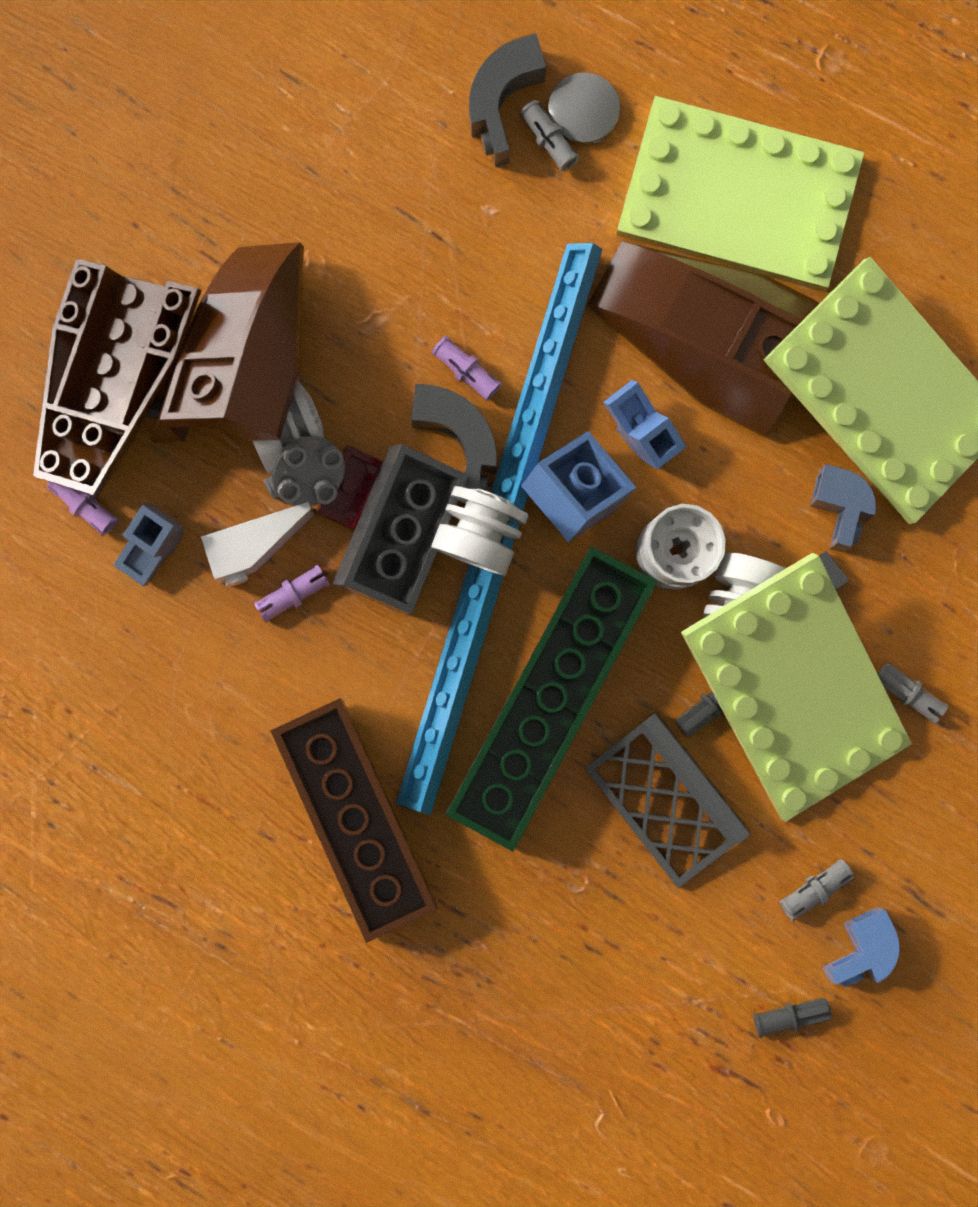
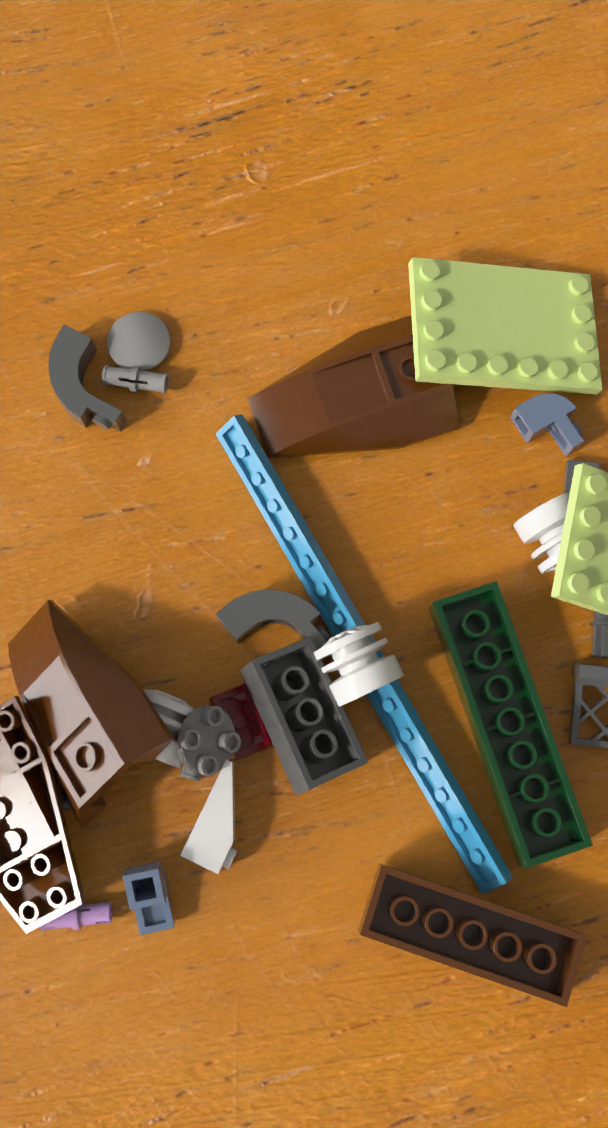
camera: 45 degrees left, 5 degrees down
(291, 593) = (274, 829): lavender pin -> none
(466, 368) = (234, 572): lavender pin -> none
(578, 486) = (384, 573): medium blue brick -> none
(642, 428) = (385, 497): medium blue brick -> none
(697, 534) = (501, 540): white wheel -> none
(740, 193) = (287, 300): yellowish green plate -> none

